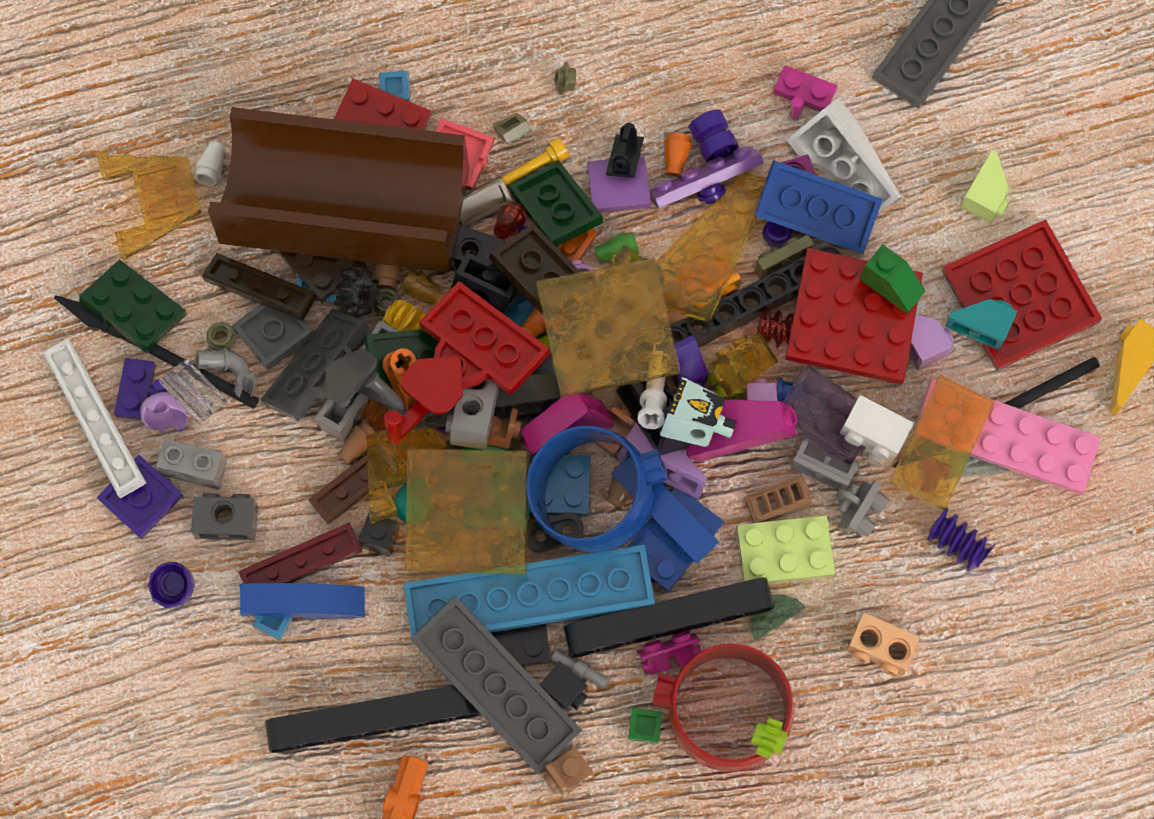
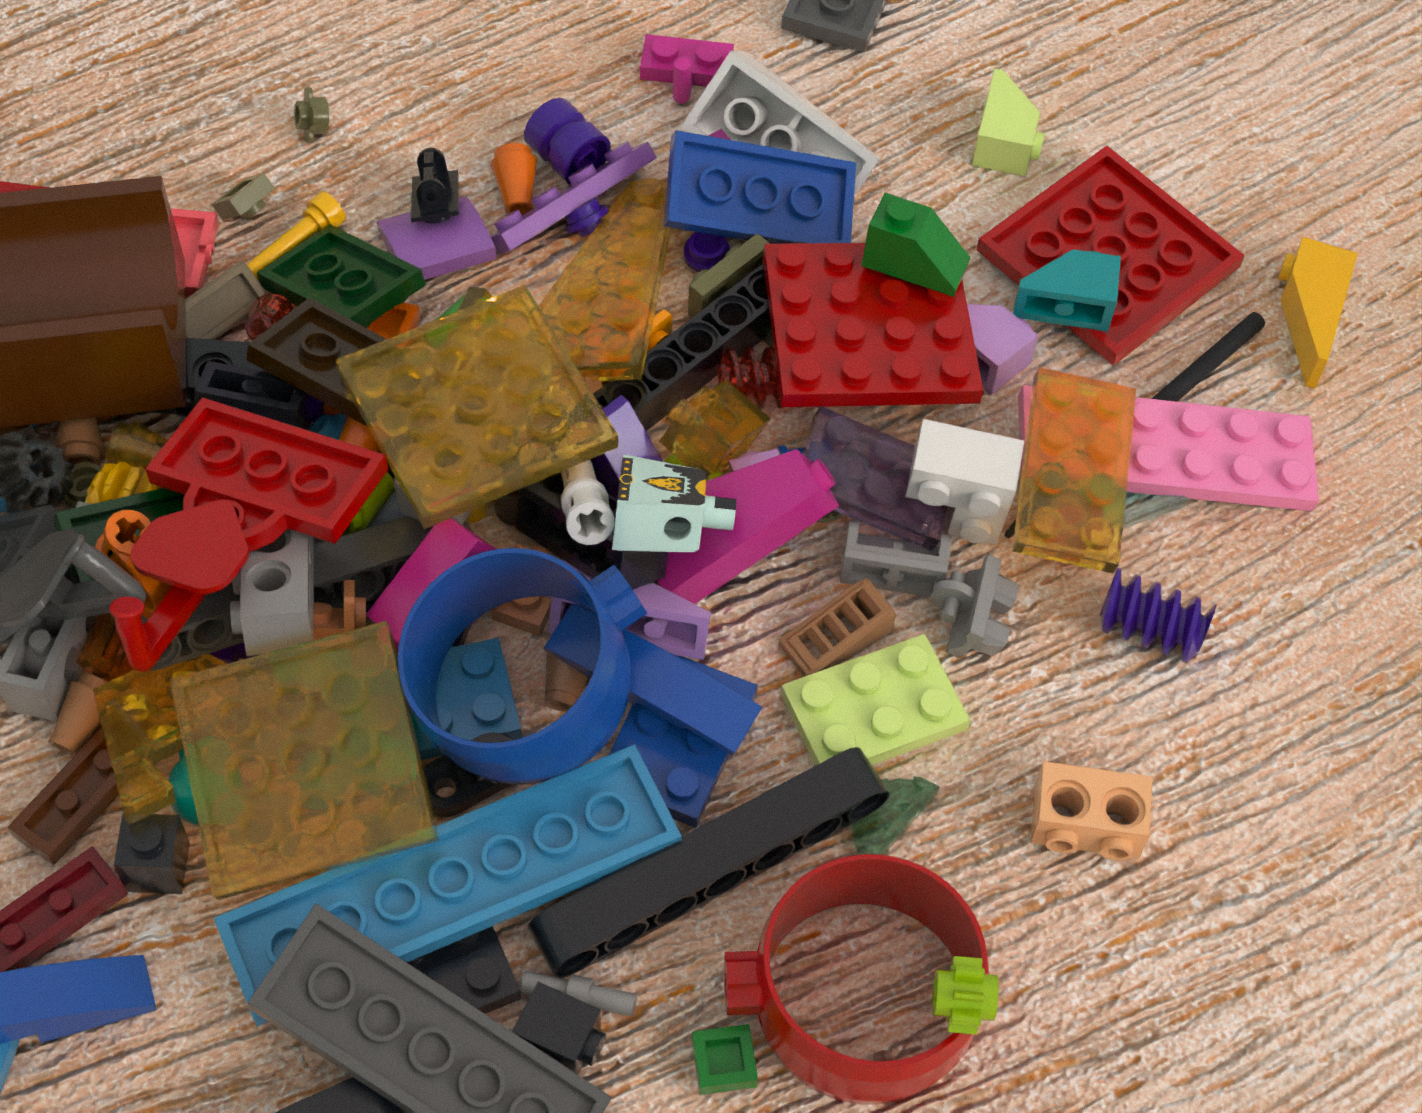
camera: 20 degrees left, 15 degrees down
(396, 83) = (36, 170): dark azure plate -> none
(658, 653) = (710, 930): dark pink hinge -> none

